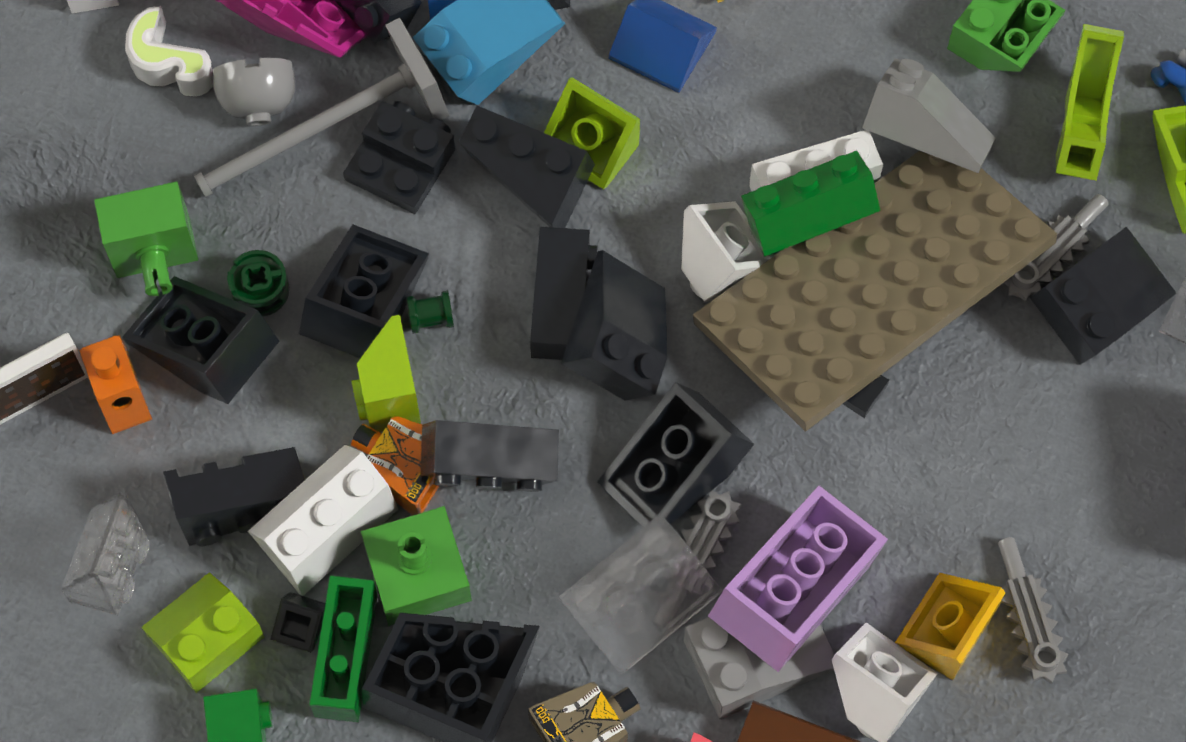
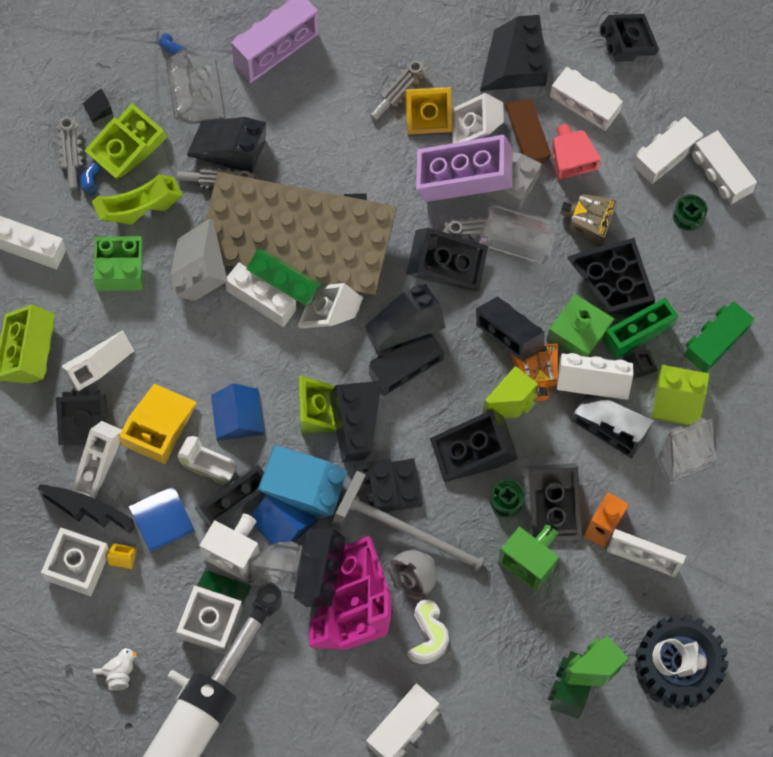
camera: 130 degrees left, 0 degrees up
(430, 311) = (459, 411): dark green bush -> none

